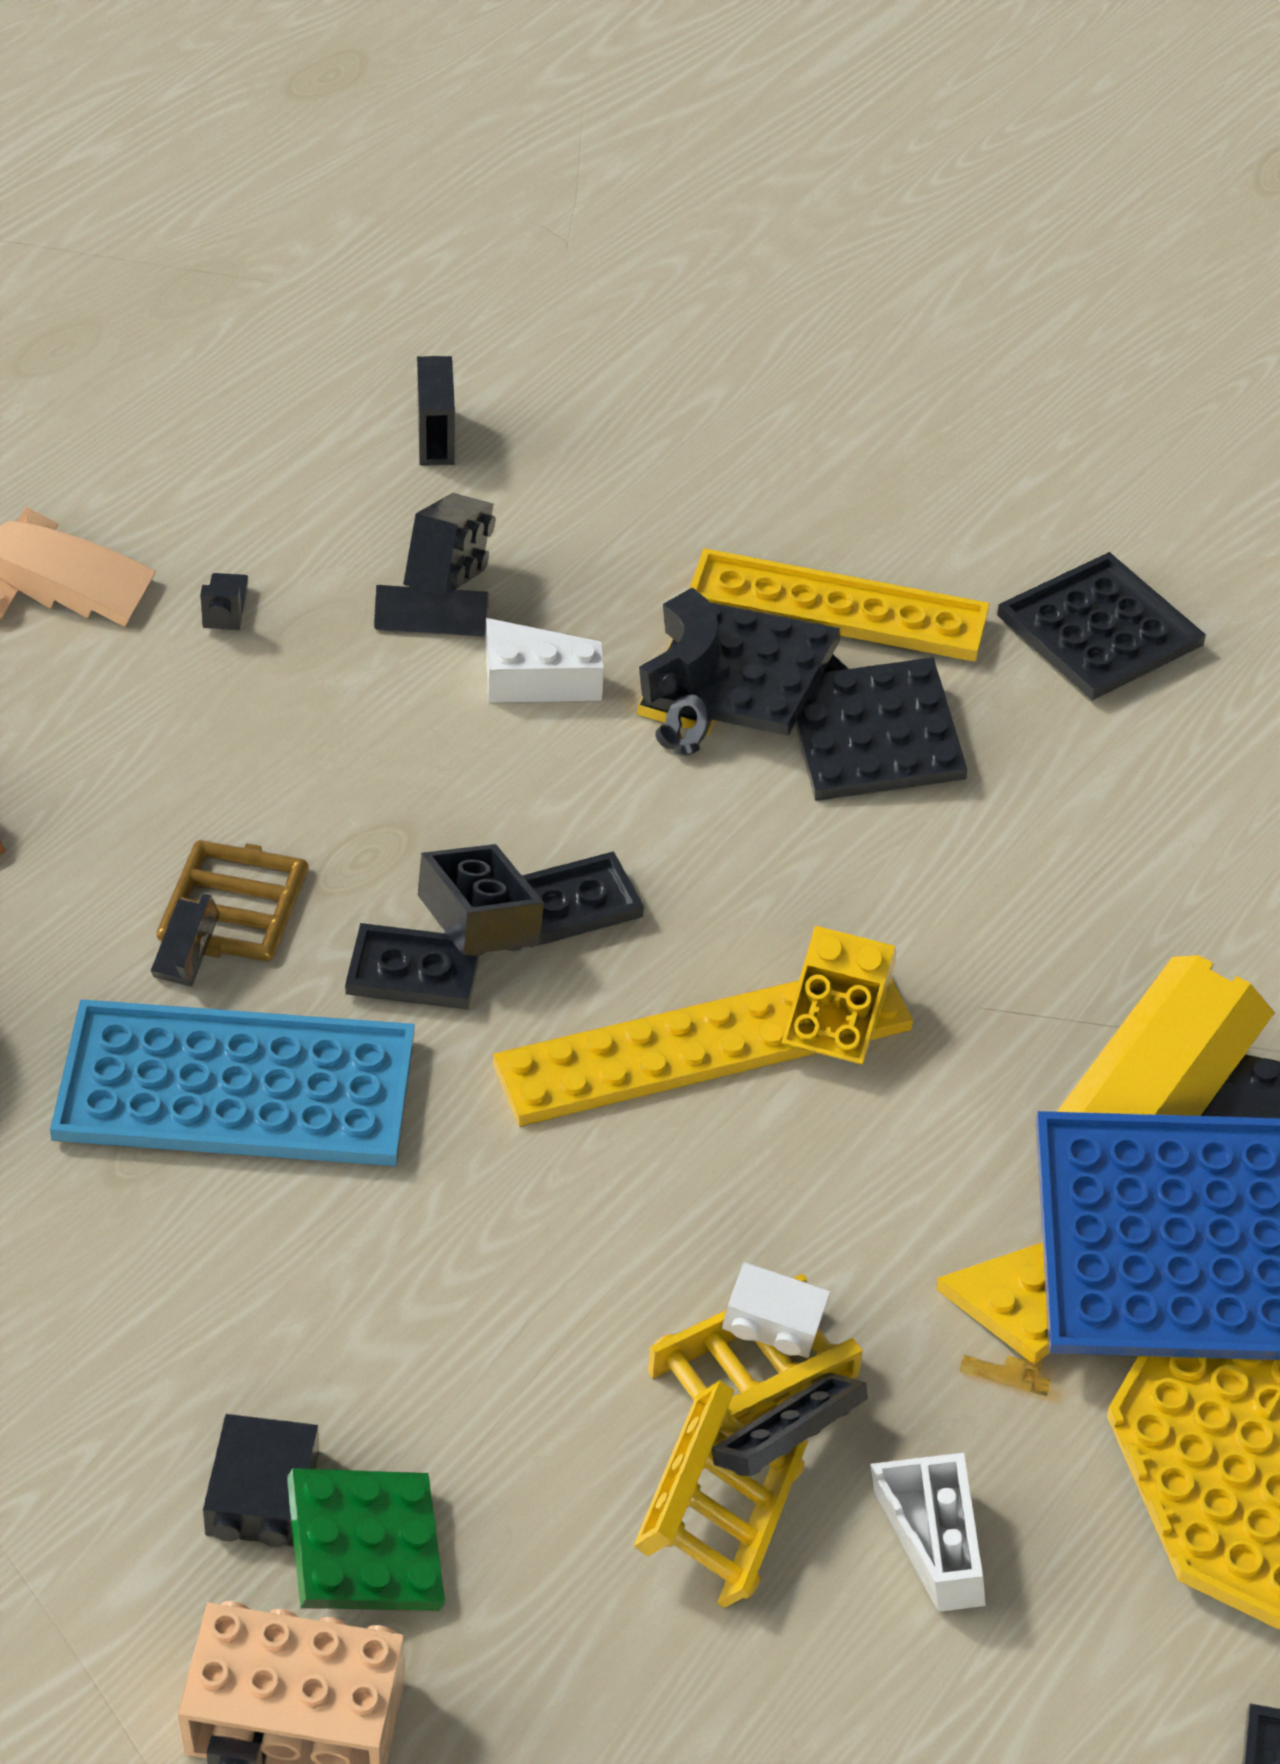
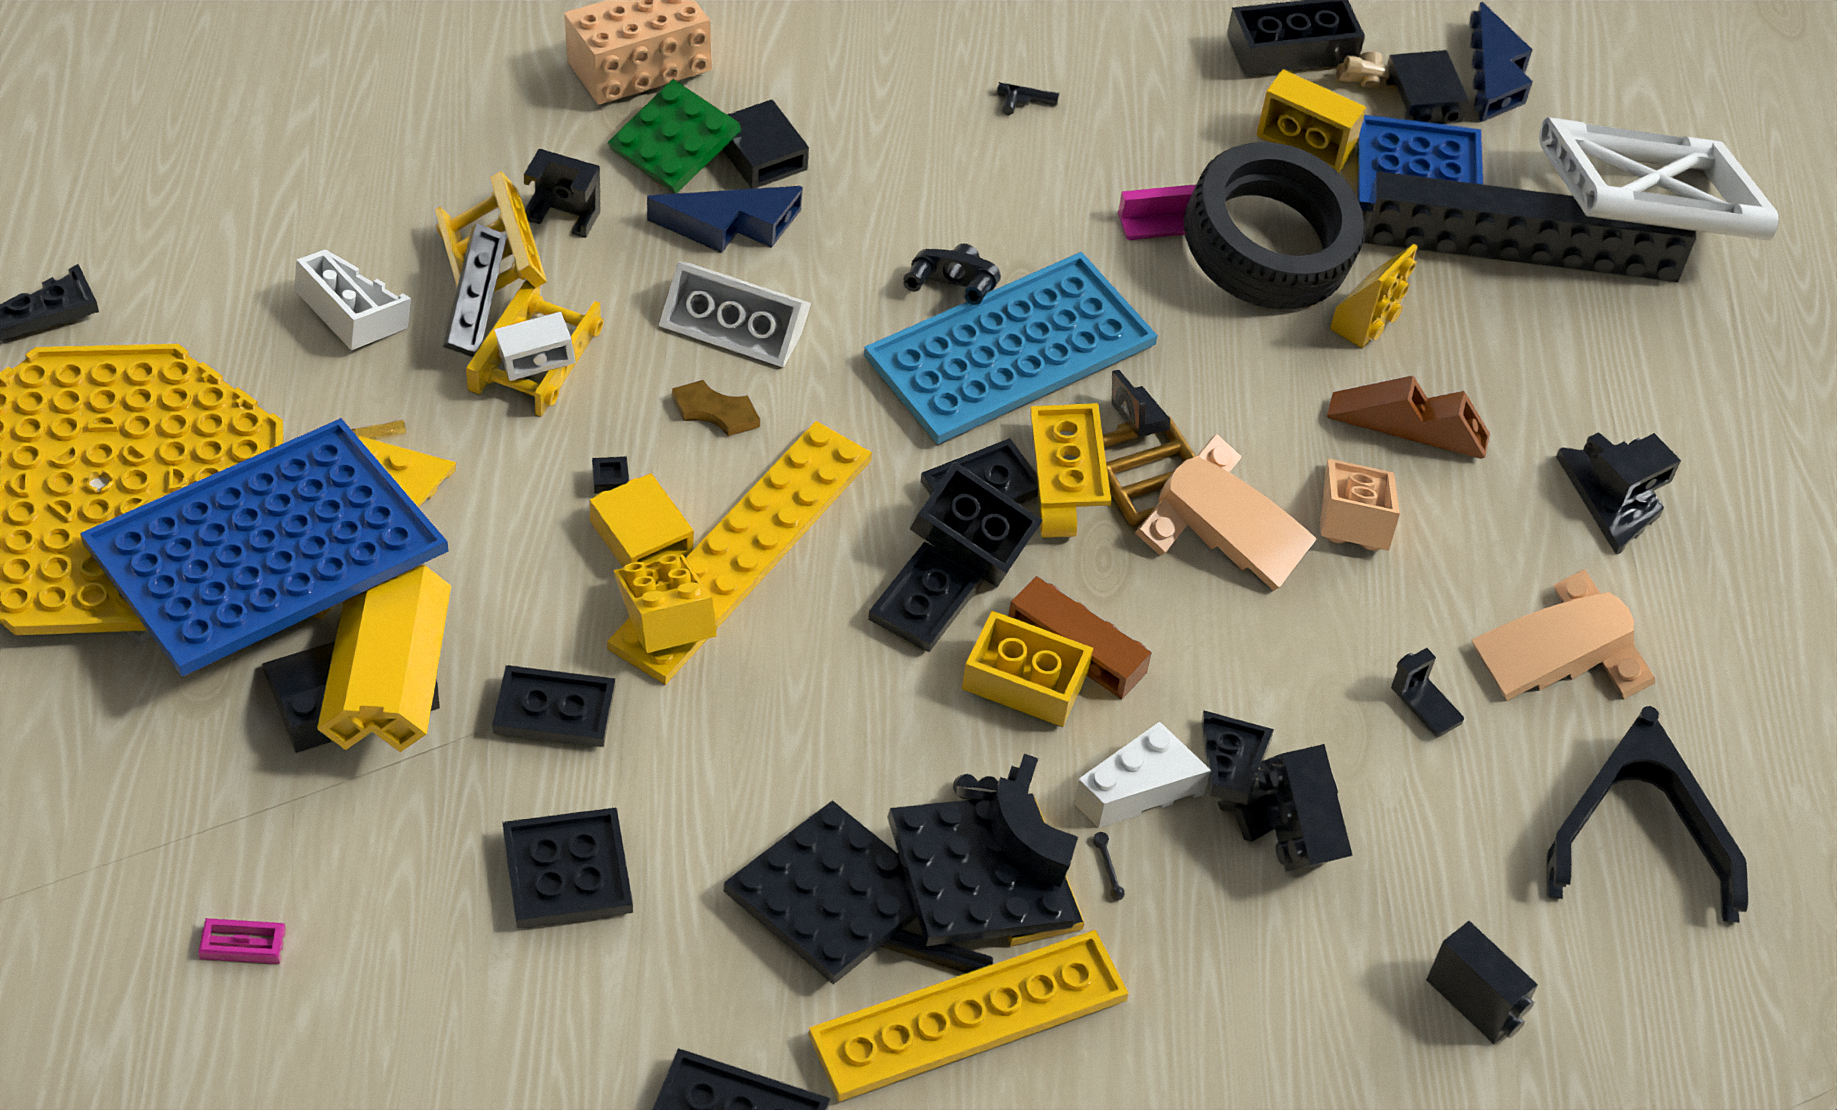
camera: 140 degrees right, 5 degrees up
(82, 757) = (1359, 505): none -> light nougat slope
(117, 471) = (1651, 757): none -> black piece
(198, 1190) = (956, 267): none -> black connector
(227, 806) = (1226, 515): none -> light nougat slope
(340, 893) = (1065, 482): none -> yellow hinge
(398, 1408) = (718, 216): none -> dark blue slope
(442, 637) = (1233, 755): none -> black wing
(468, 787) = (1116, 658): none -> dark orange brick
(494, 1277) = (734, 314): none -> white slope
(551, 780) = (1027, 668): none -> yellow brick
(566, 1531) = (565, 186): none -> black panel
(597, 1183) = (702, 403): none -> pearl gold tile
(609, 661) = (1101, 841): none -> black hinge
(782, 1175) = (609, 473): none -> black plate
(794, 1103) = (640, 522): none -> yellow brick
(1007, 990) = (554, 706): none -> black plate
(1090, 860) = (567, 867): none -> black plate

